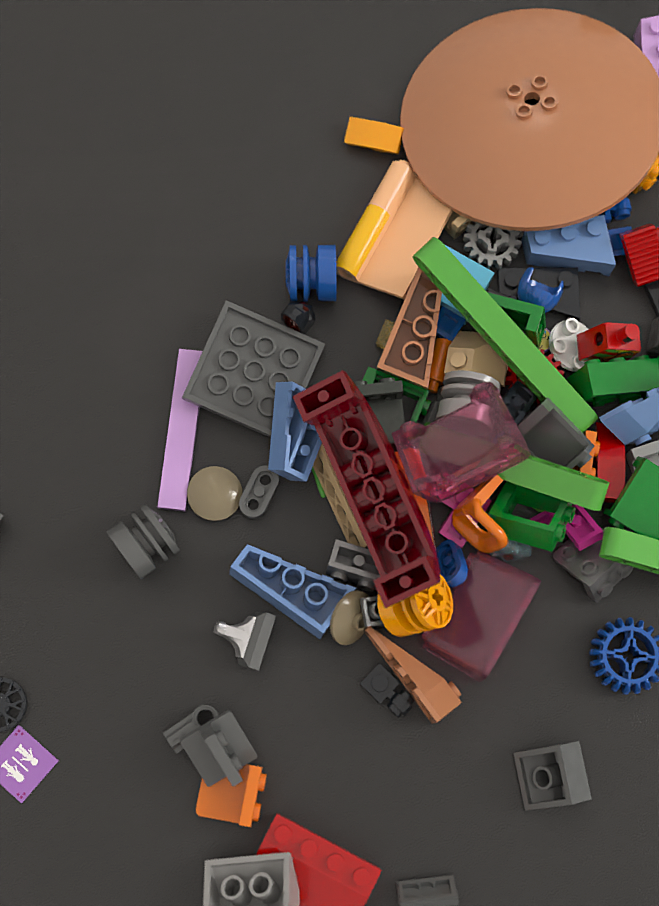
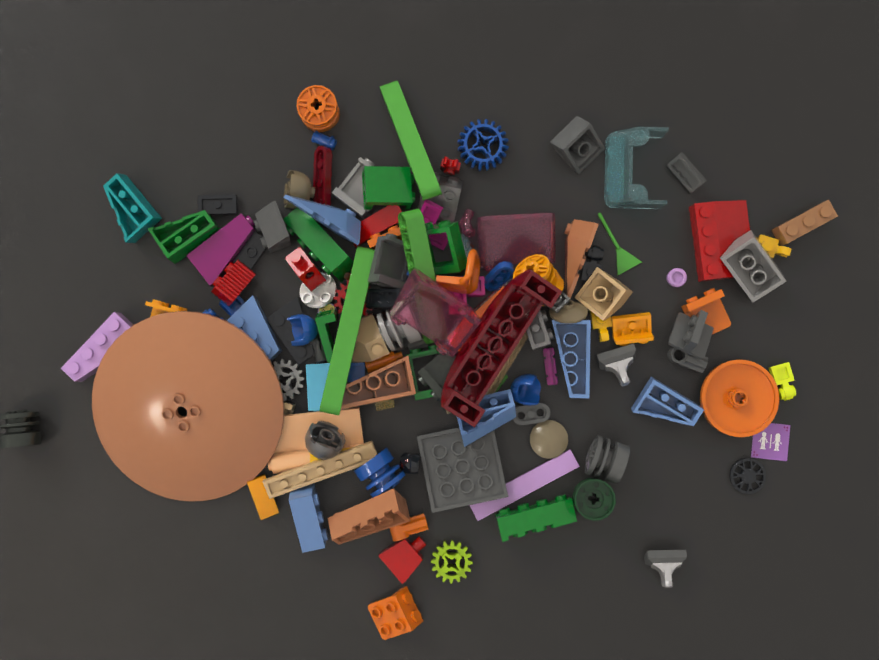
camera: 120 degrees left, 10 degrees up
(89, 833) = (782, 375): none -> neon yellow plate
(99, 757) = (739, 398): none -> orange dish
(104, 478) = (602, 507): none -> dark green wheel
(136, 412) = (535, 517): none -> green wedge
(141, 193) = (395, 614): none -> orange bracket
(144, 289) = (460, 571): none -> lime gear
(156, 662) = (665, 403): none -> medium blue wedge
(198, 239) = (403, 557): none -> red torso
(230, 261) = (417, 524): none -> orange piece
(269, 229) = (369, 517): none -> nougat wedge
(276, 683) = (632, 329): none -> light orange bracket
(291, 503) = (526, 389): none -> blue hair
(299, 554) = (550, 366): none -> magenta axle
(301, 787) = (676, 277): none -> lavender tile
(313, 654) = (601, 325): none -> yellow plate
(319, 167) = (308, 518): none -> medium blue wedge
(343, 677) = (603, 294): none -> tan slope
(362, 211) = (319, 470): none -> tan tile
(368, 737) = (624, 259): none -> bright green piece
(393, 233) = (324, 440): none -> flat silver cylinder
(461, 786) = (619, 186): none -> clear light blue windscreen
(541, 569) = (465, 224): none -> clear pink arm
(625, 596) = (450, 166): none -> red plate

